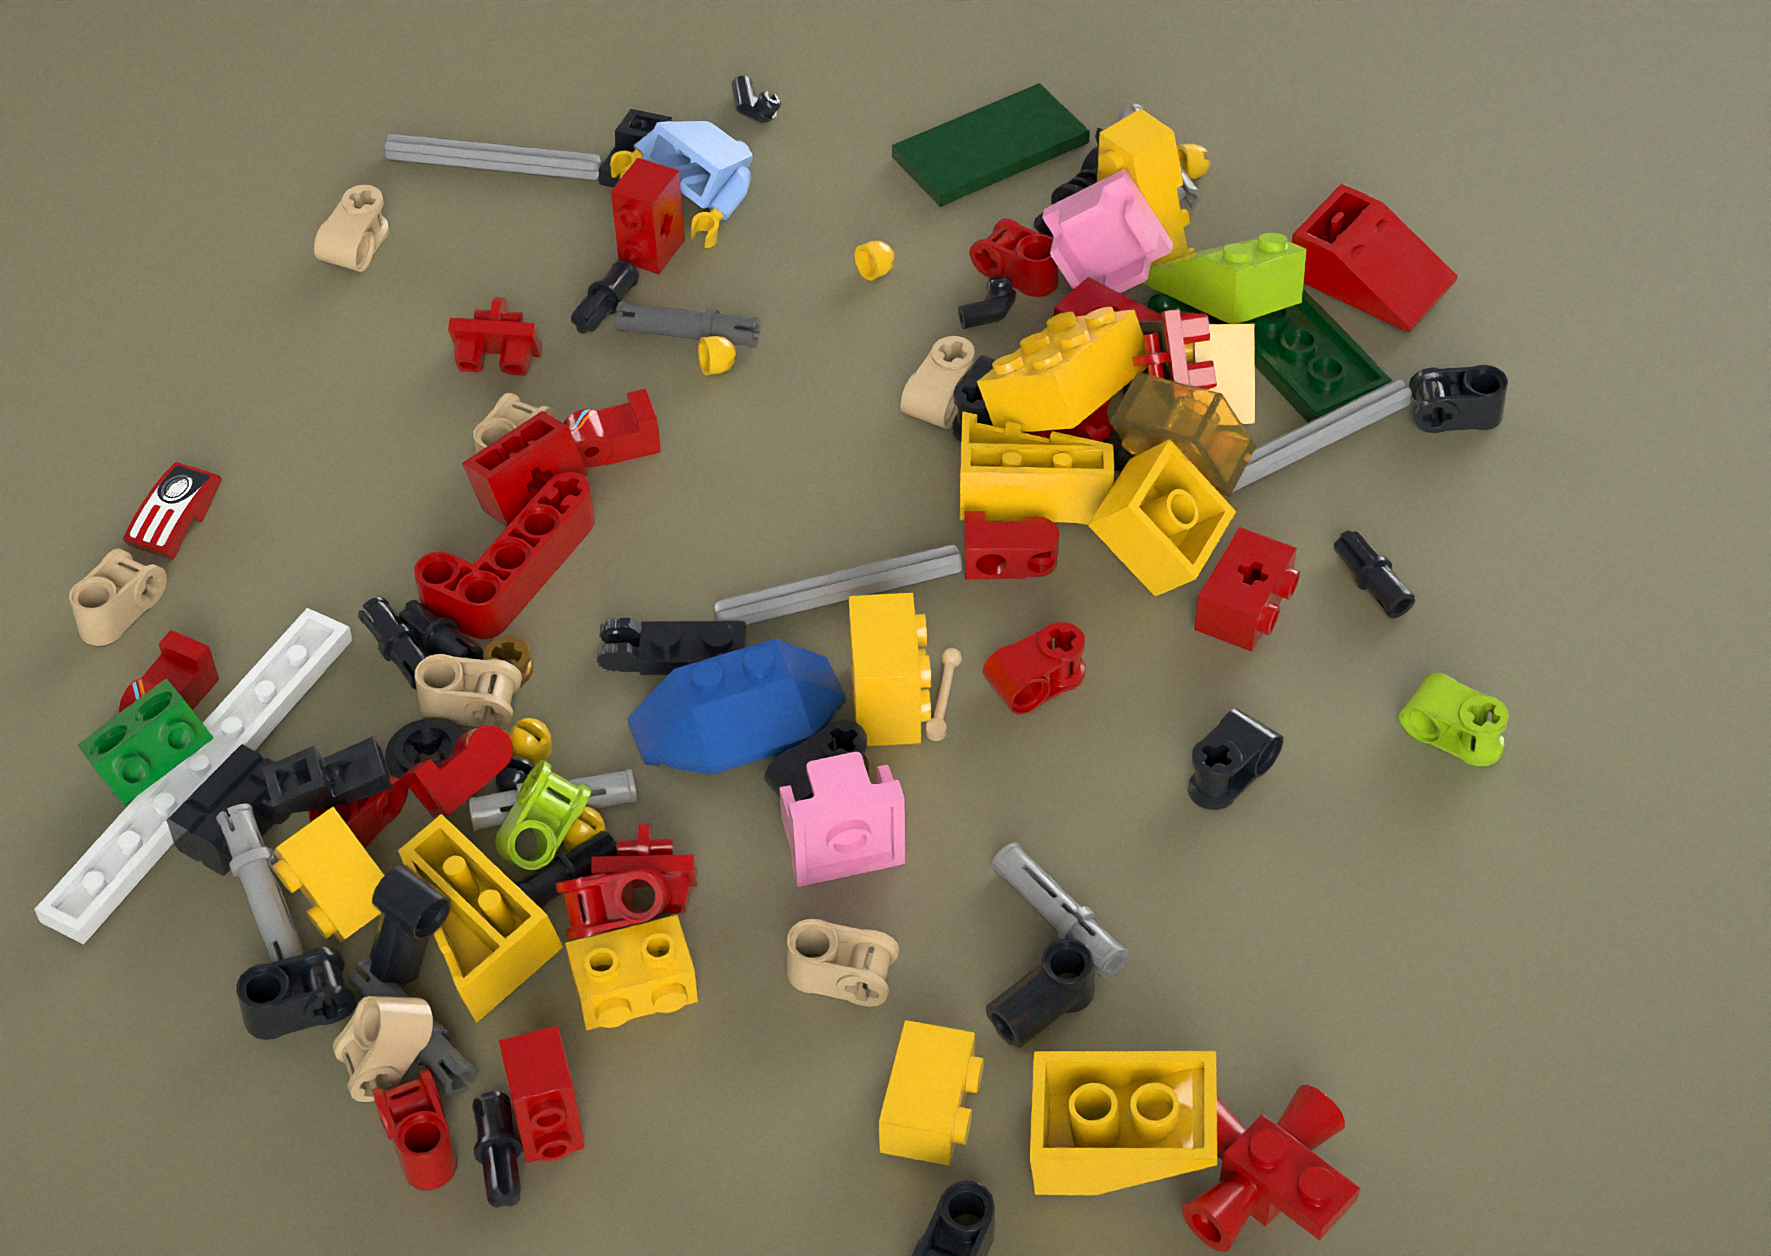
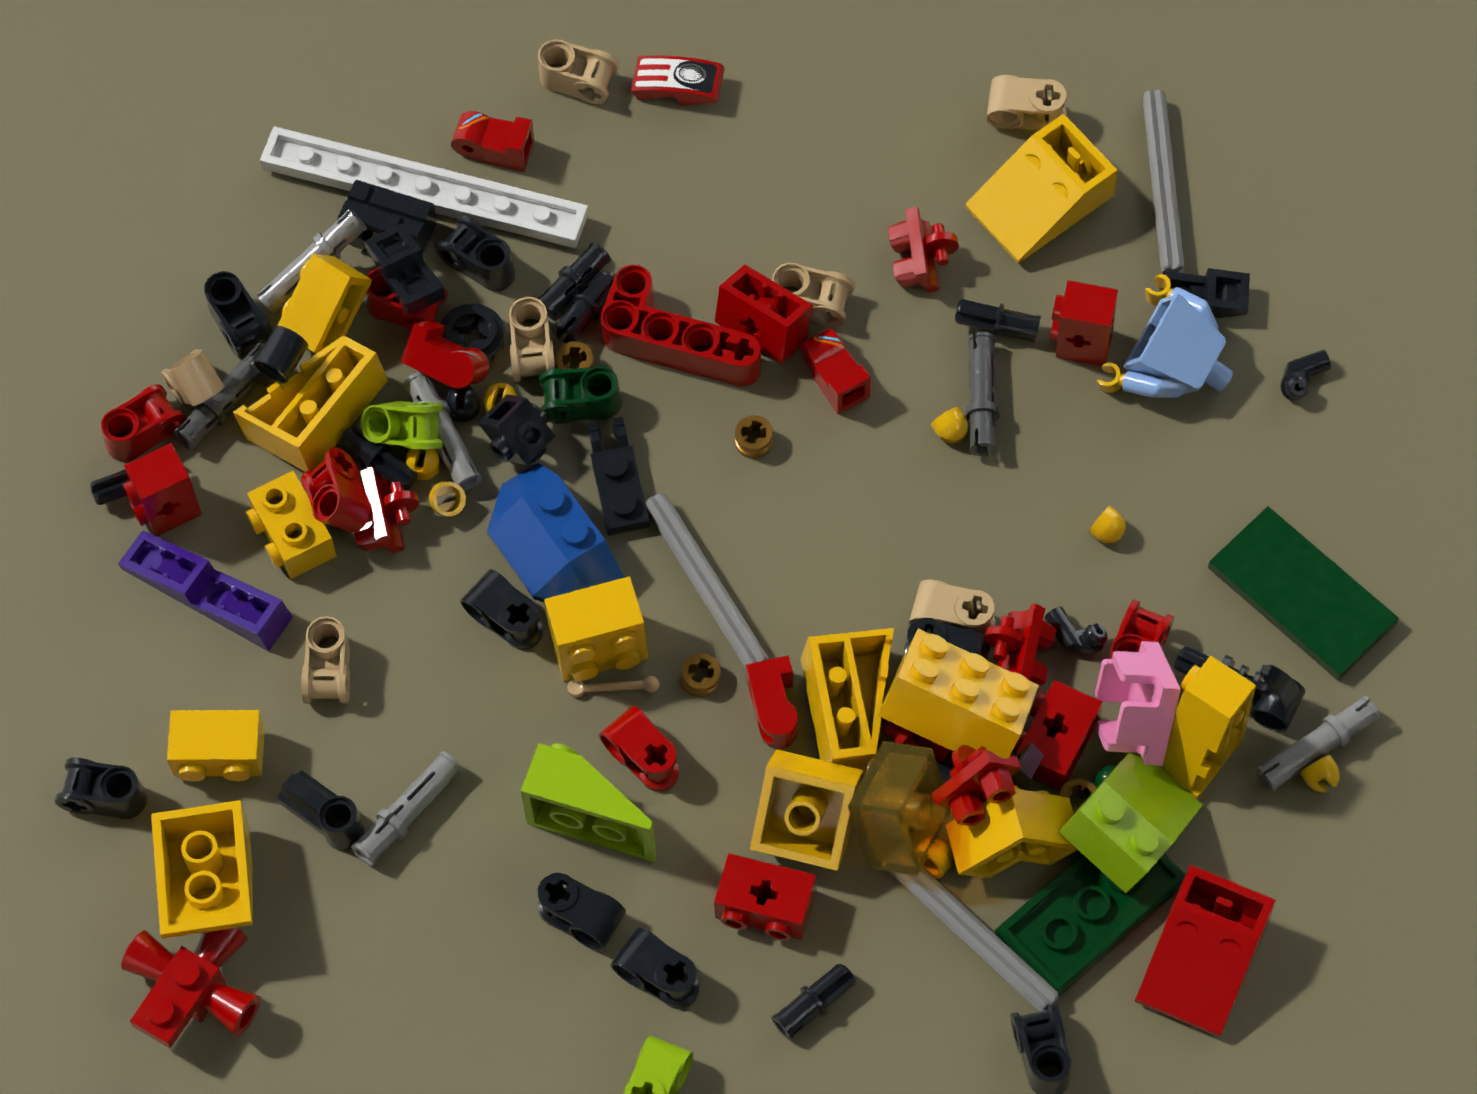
camera: 80 degrees right, 15 degrees up
(145, 741) = (424, 141): green brick -> none
(327, 718) = (474, 248): none -> black piece
(467, 229) = (1043, 189): none -> yellow slope
(555, 654) = (576, 394): none -> dark green piece
(588, 713) = (517, 430): none -> black brick
(650, 805) = (450, 507): none -> yellow hinge
(661, 507) = (763, 444): none -> pearl gold bush
(680, 1099) = (208, 591): none -> dark purple slope
(847, 823) = (440, 629): bright pink panel -> none
(952, 624) = (693, 664): none -> pearl gold bush
(995, 331) = (1018, 641): none -> red hips
(1106, 714) = (577, 801): none -> lime slope
(1316, 694) = (651, 965): none -> black piece

